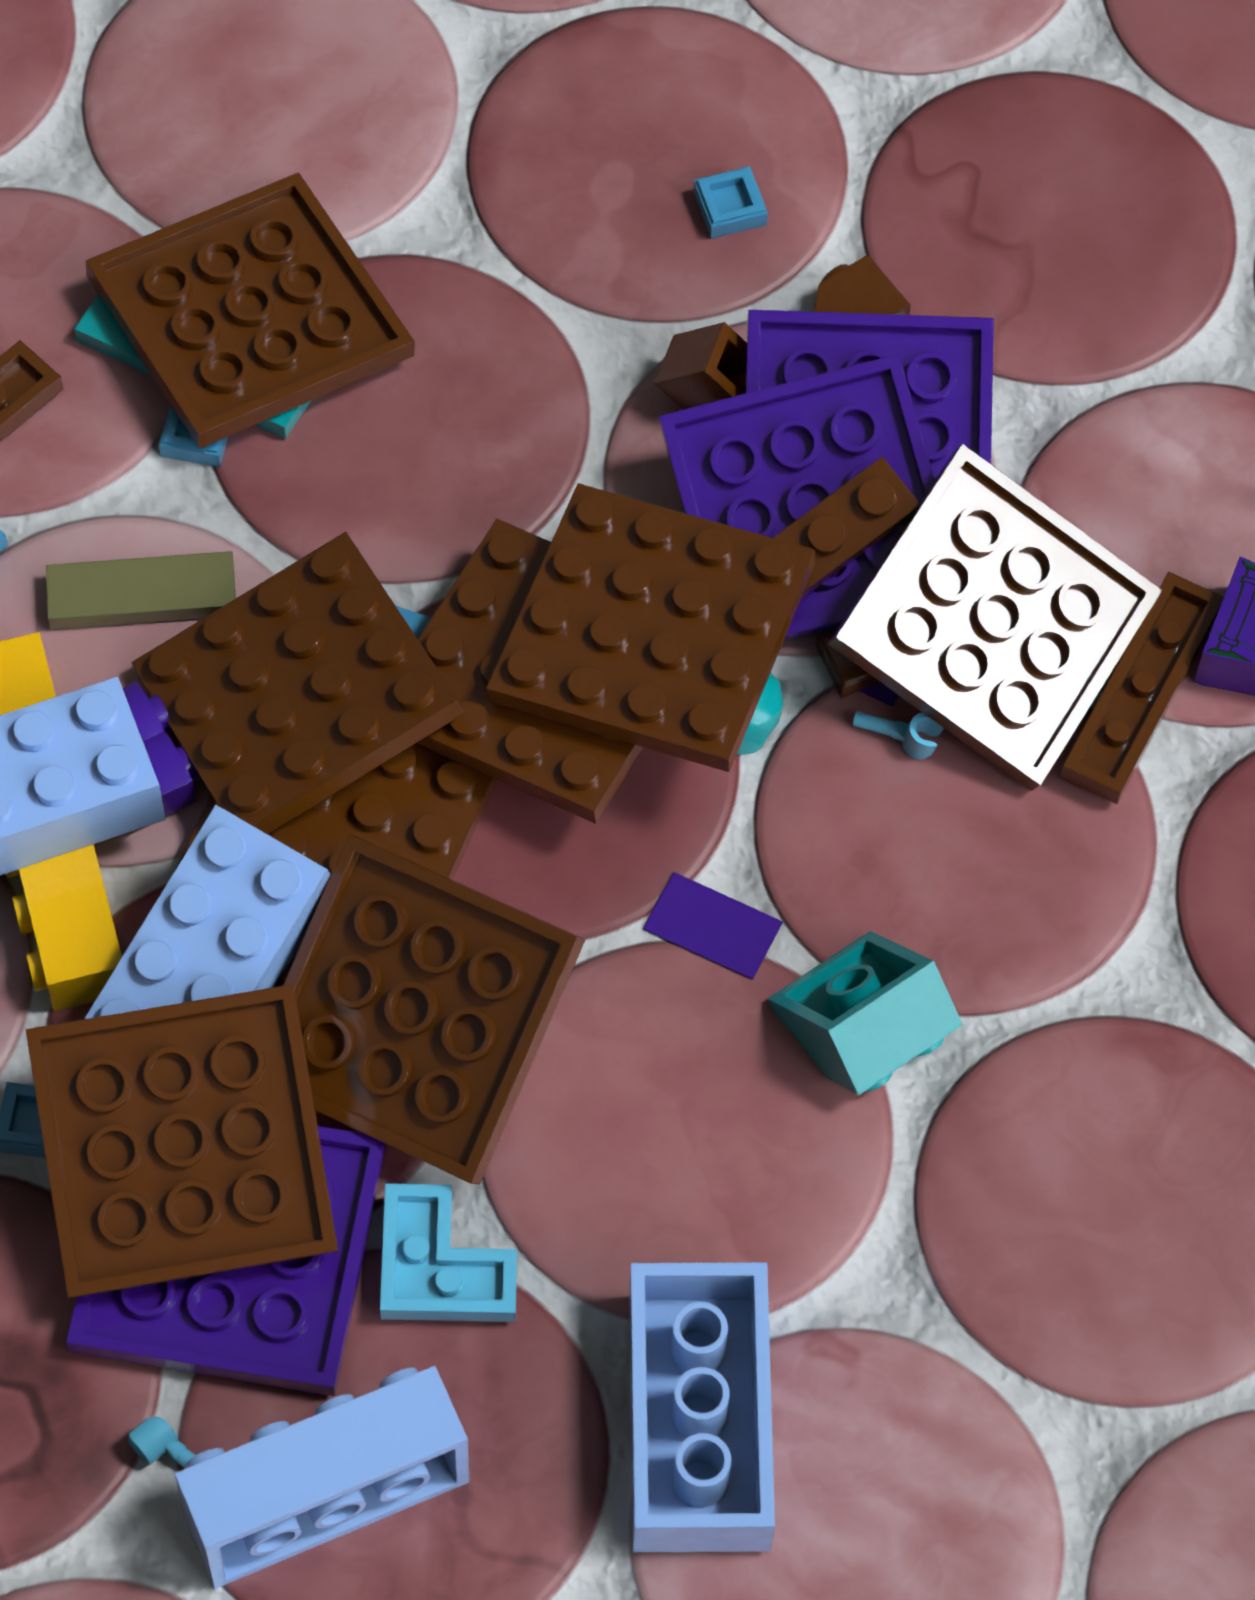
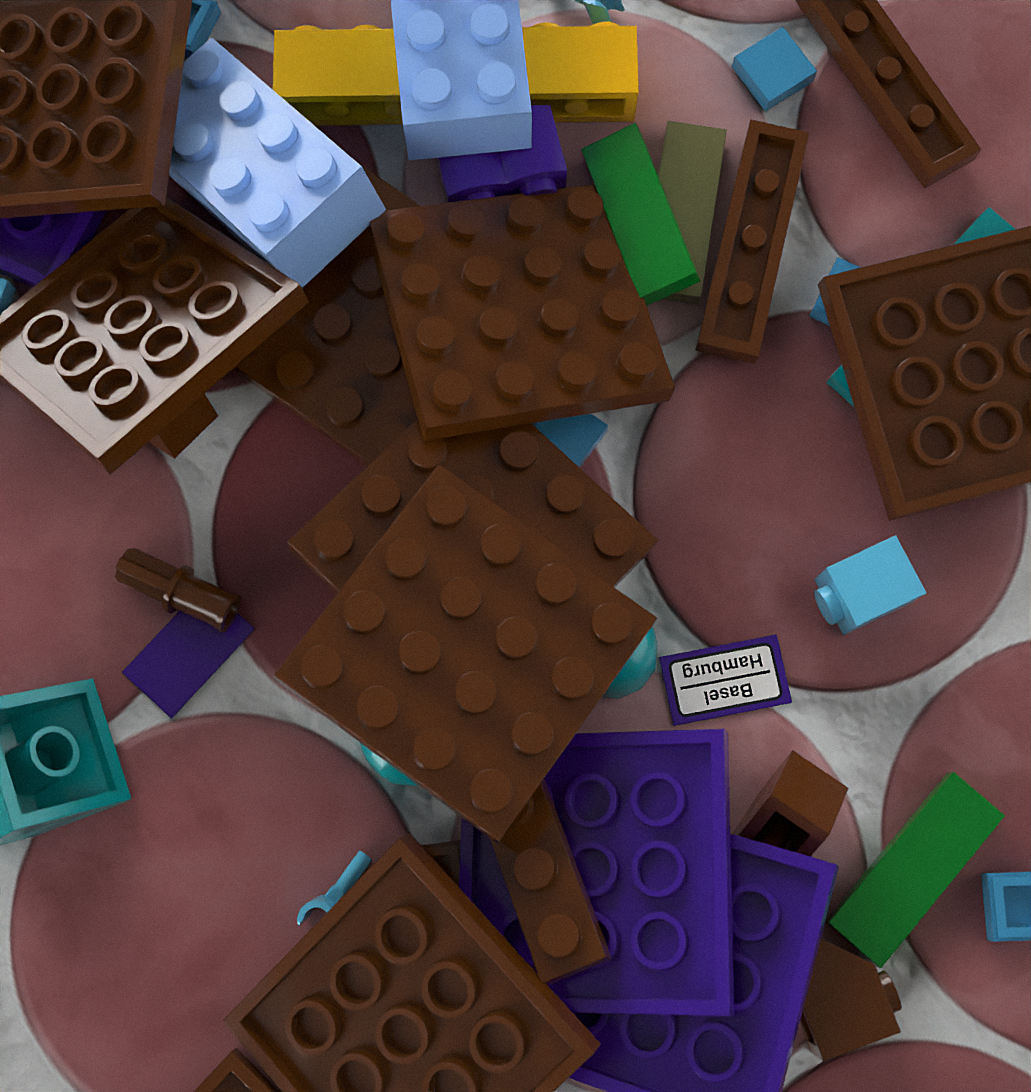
camera: 110 degrees right, 15 degrees up
(160, 519) = (752, 242): none -> reddish brown plate
(160, 614) = (640, 215): none -> green tile
(483, 357) = (867, 586): none -> medium azure brick
(599, 457) = (725, 680): none -> sticker
(658, 939) = (178, 589): none -> reddish brown axle
(715, 277) = (914, 869): none -> green tile

